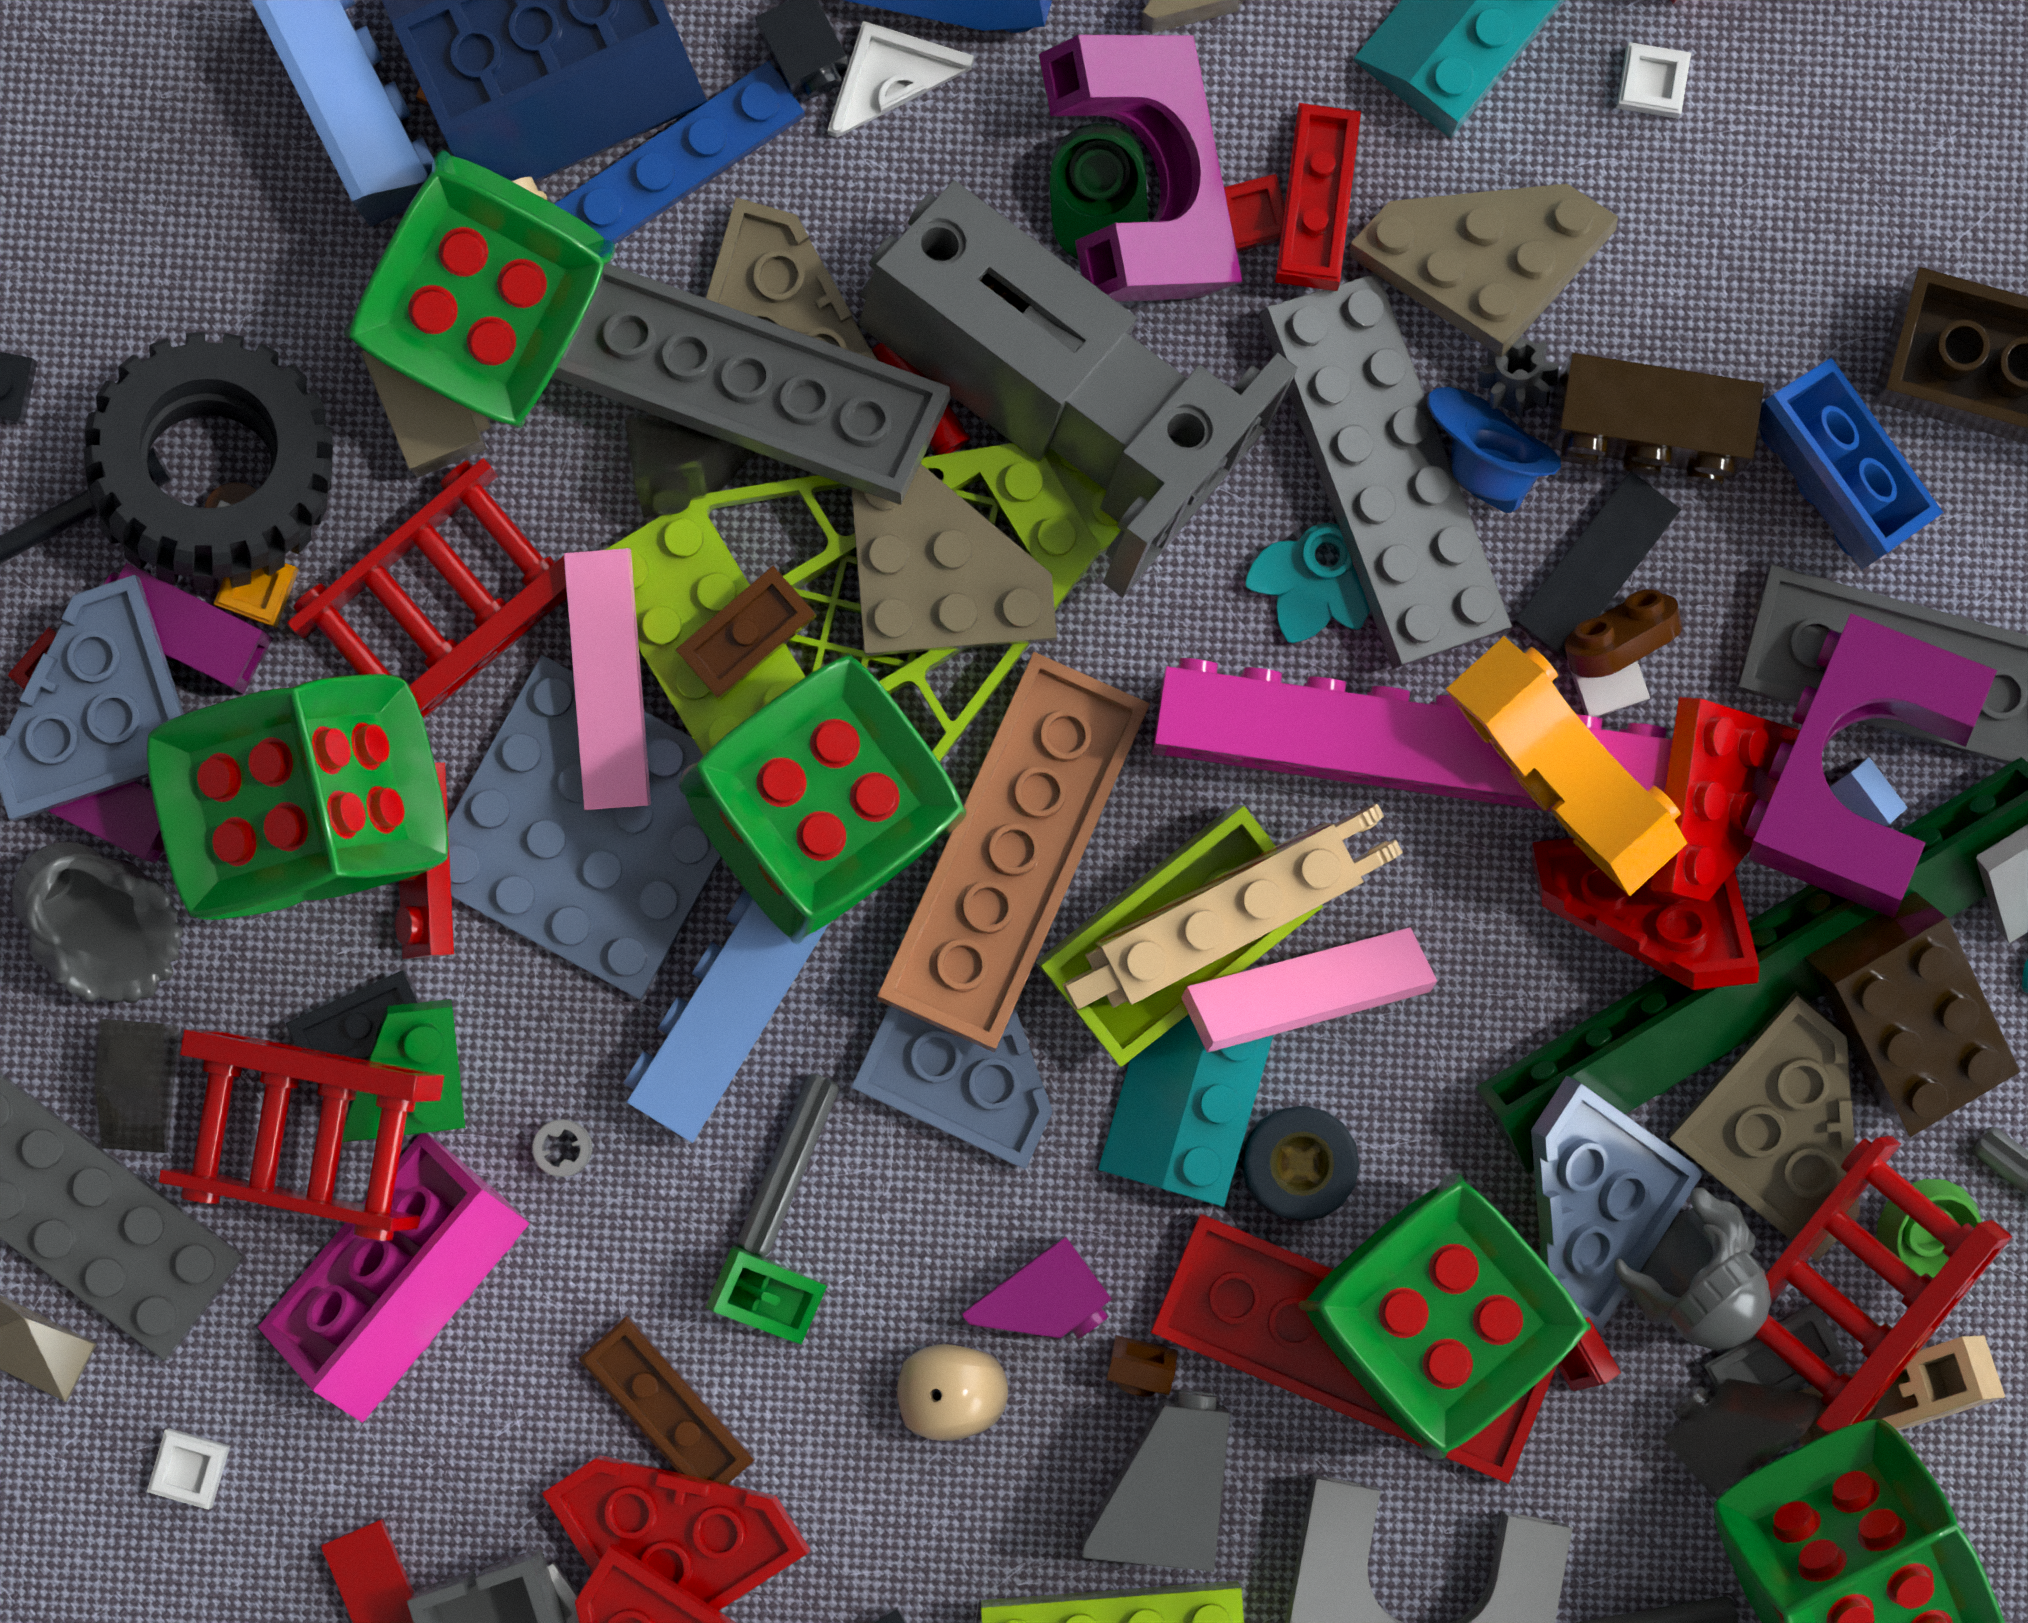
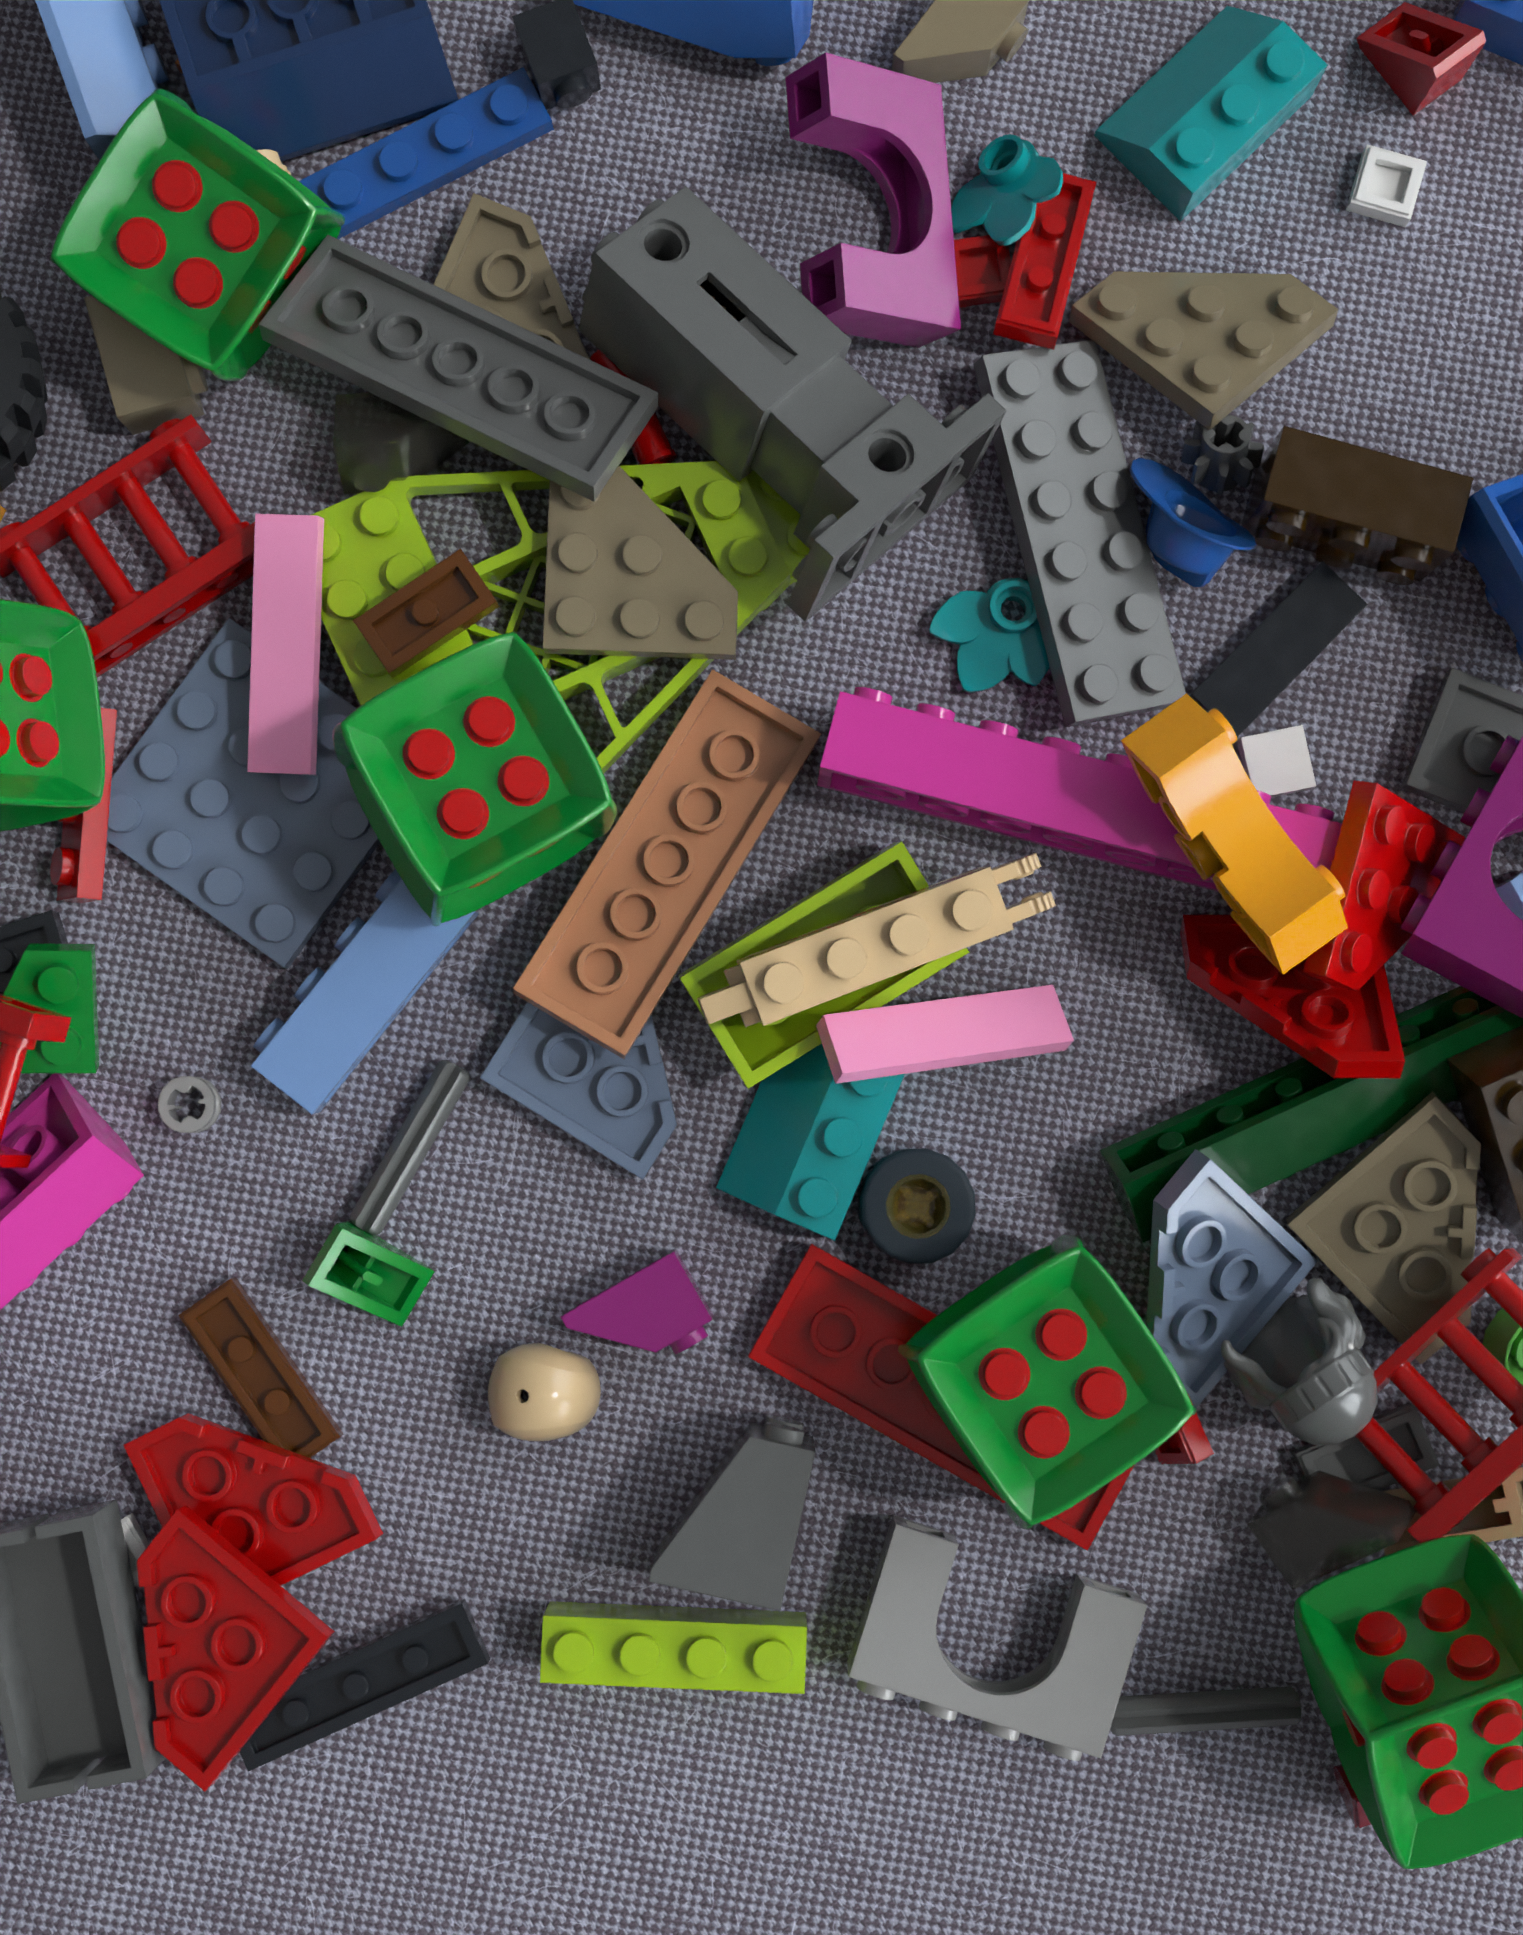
camera: 10 degrees right, 0 degrees up
(889, 72) = (640, 94): white tile -> none
(1096, 183) = (824, 207): dark green cap -> none
(1141, 1367) = (735, 1389): reddish brown plate -> none
(1271, 133) = (1006, 190): none -> teal plate
(1623, 634) = (1298, 718): reddish brown plate -> none

